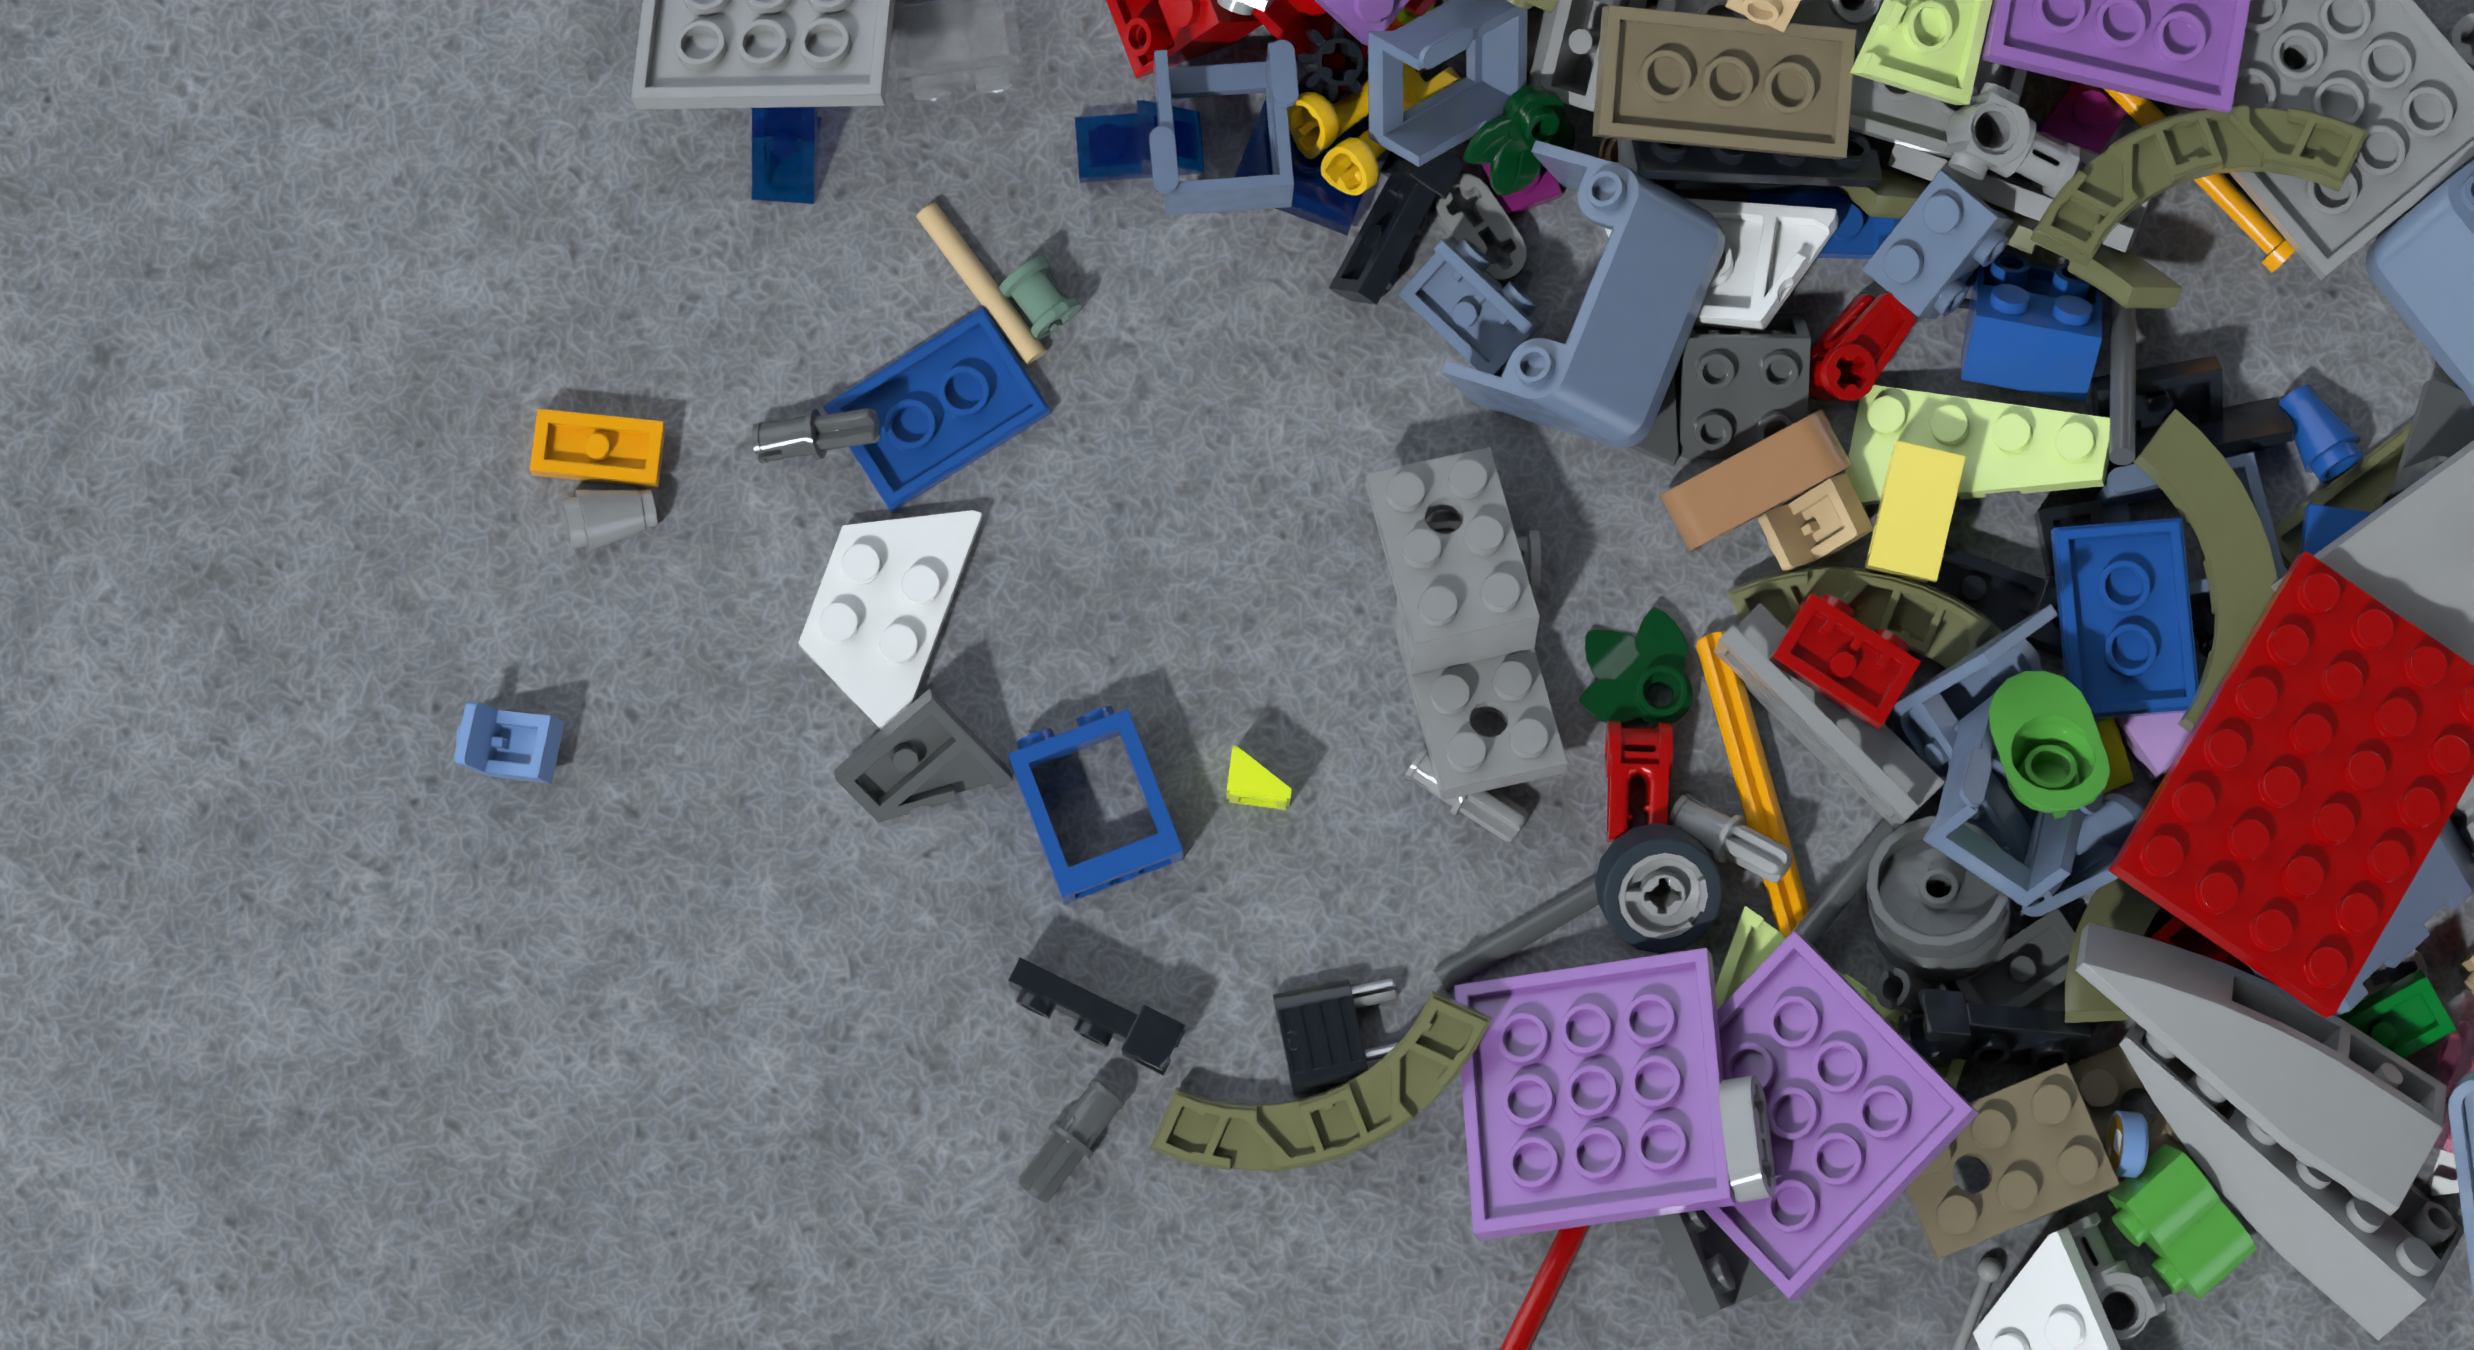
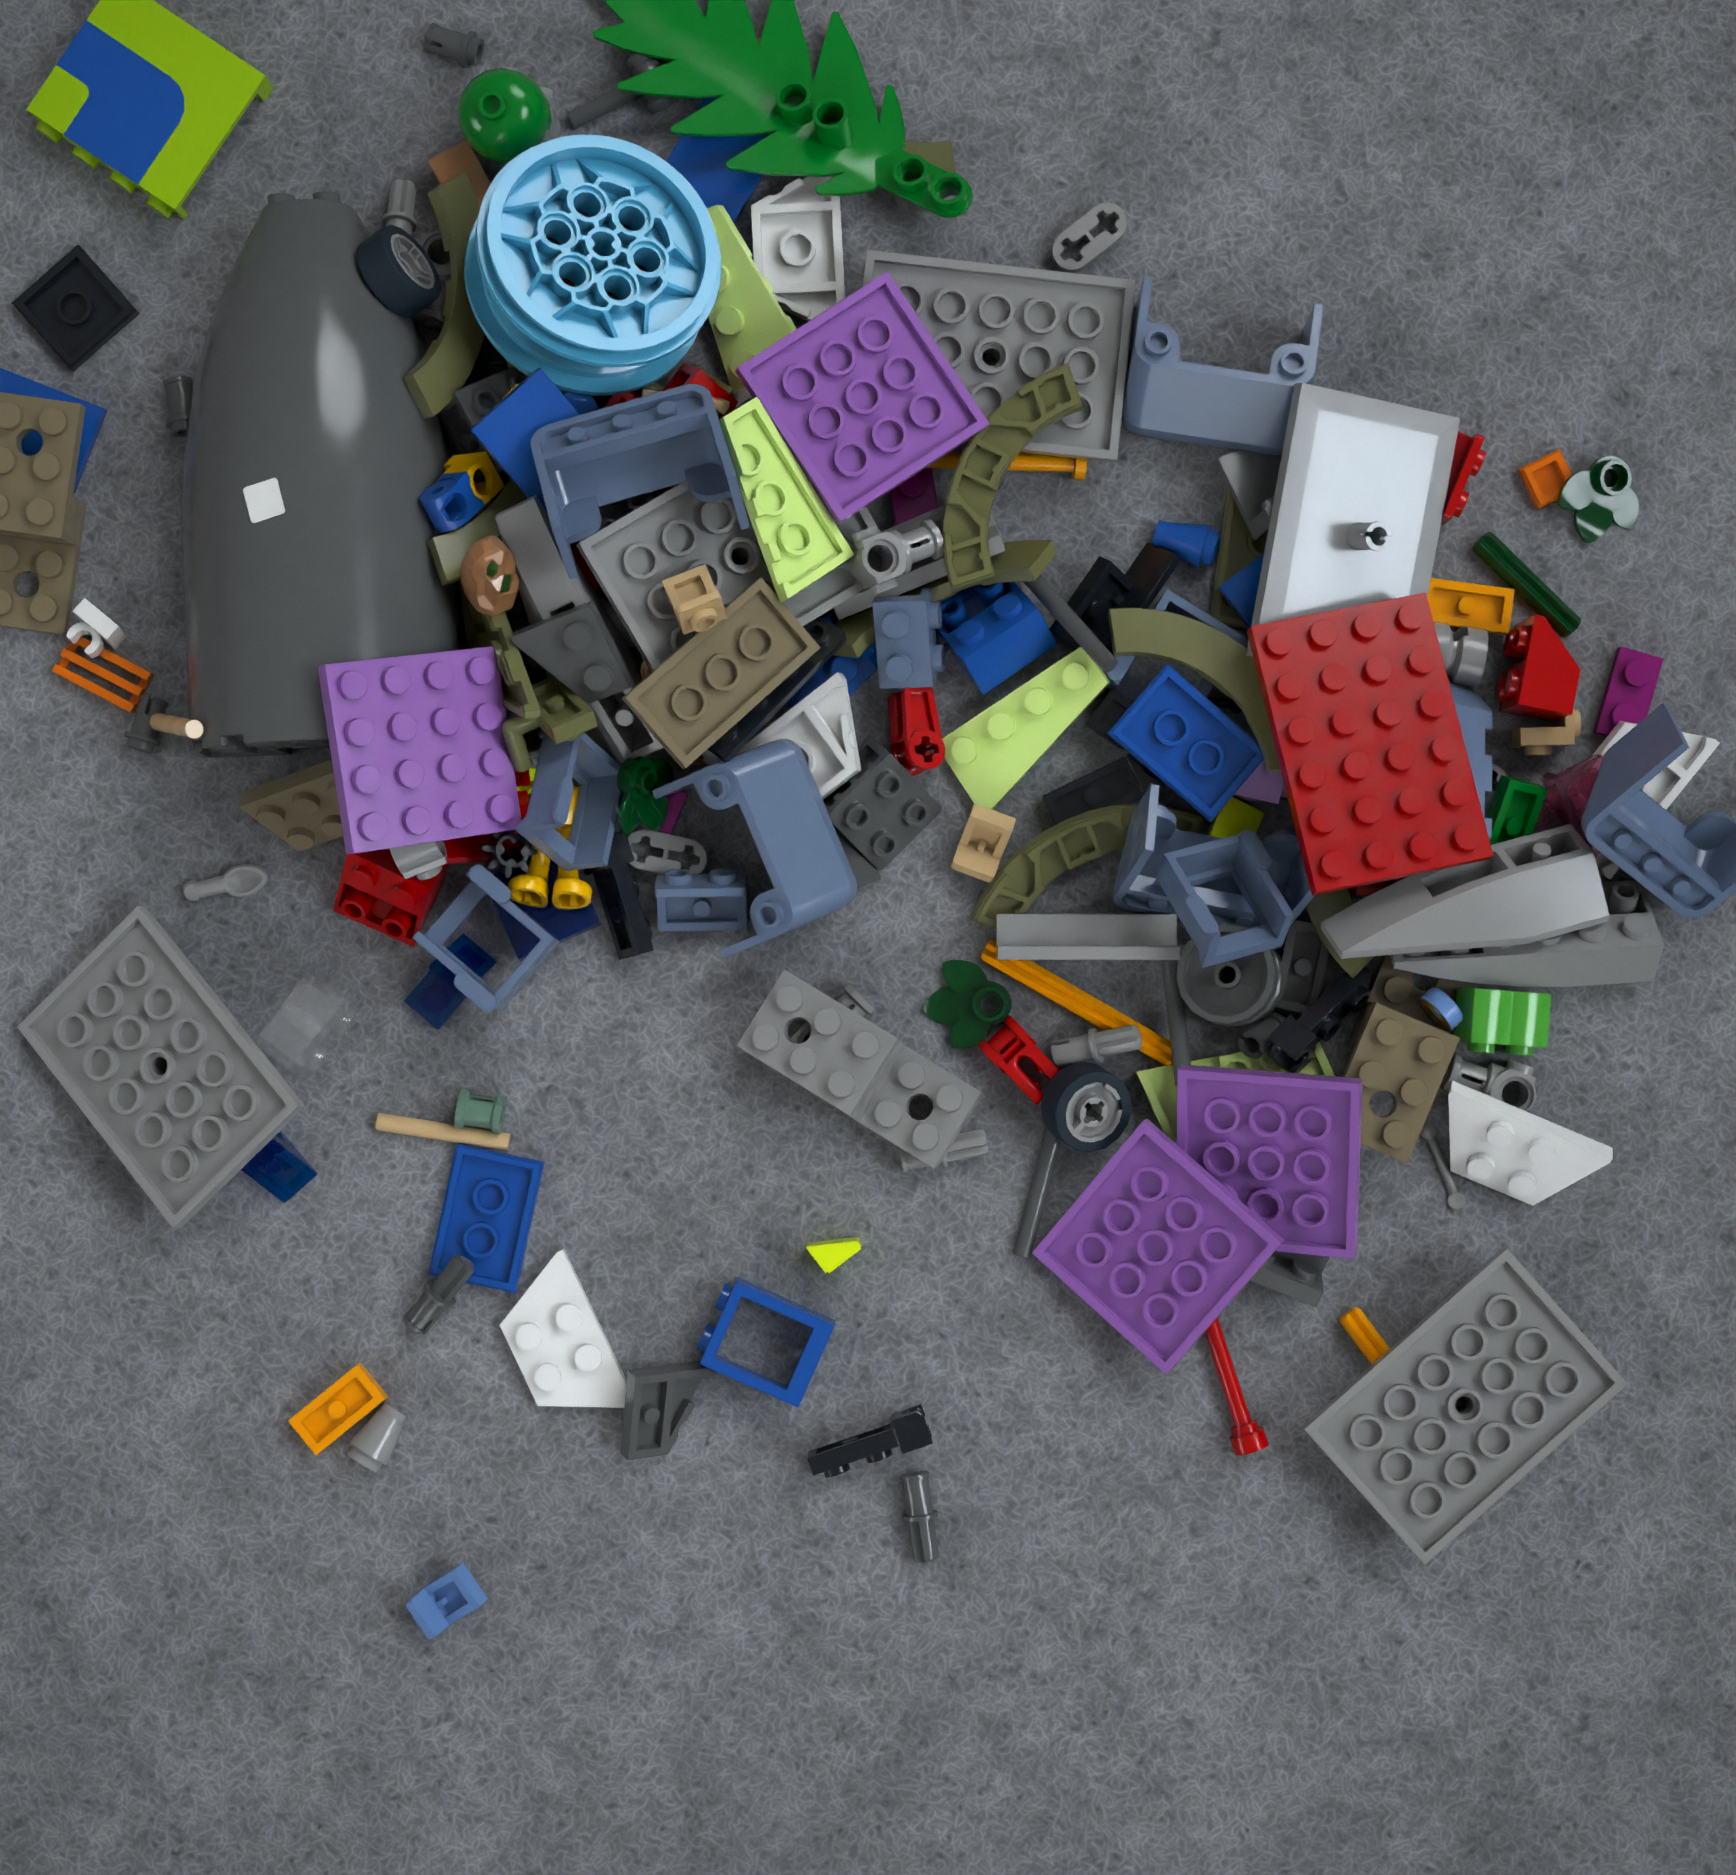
camera: 45 degrees left, 10 degrees up
(1324, 1033) = (992, 1340): black piece -> none
(1334, 1121) = (1039, 1379): olive tile -> none
(1747, 1138) = (1258, 1200): light grey beam -> none
(1756, 480) = (932, 850): medium nougat beam -> none
(1845, 659) = (1068, 904): red bracket -> none
(1915, 512) = (1029, 791): light yellow hinge -> none
(2048, 743) = (1217, 856): bright green piece -> none

